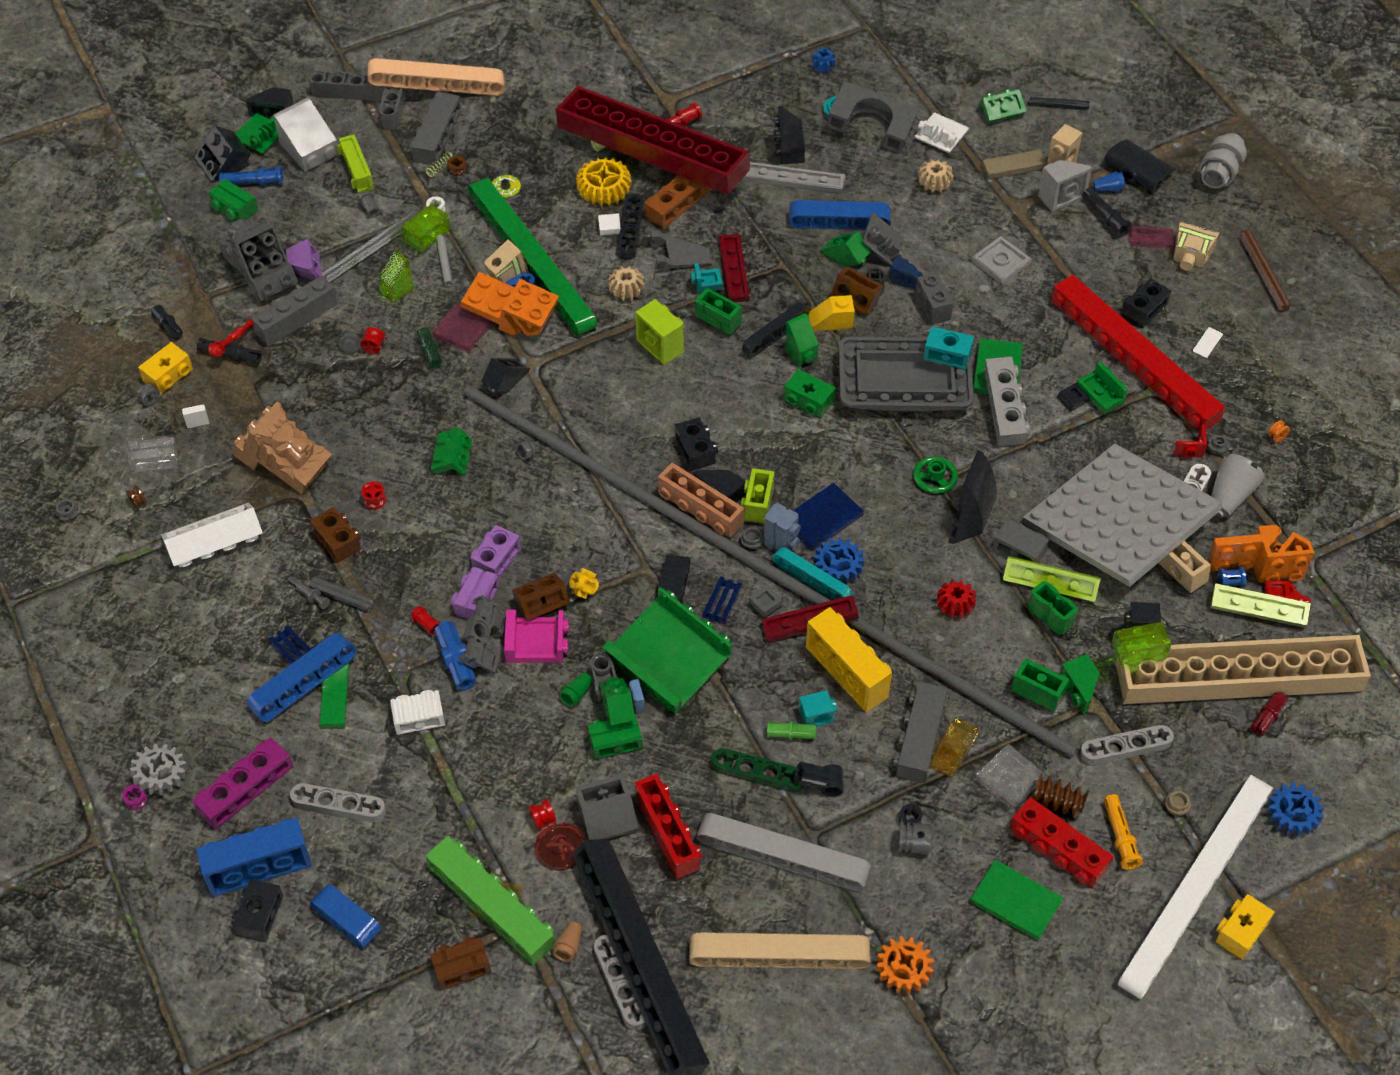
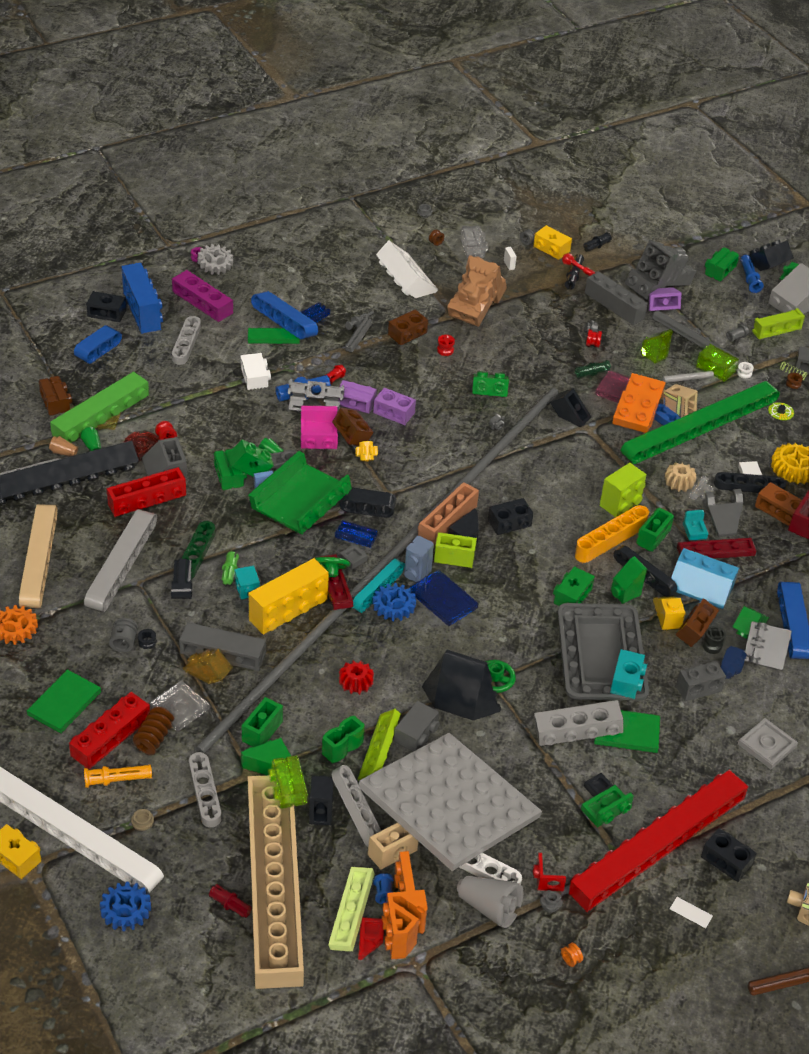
camera: 85 degrees right, 10 degrees down
(555, 906) = (91, 438): none -> green cone
(720, 353) = (611, 534): none -> light orange beam
(786, 280) = (704, 577): none -> slope
(803, 612) = (332, 564): none -> green piece
(1149, 590) = (346, 785): none -> light grey beam

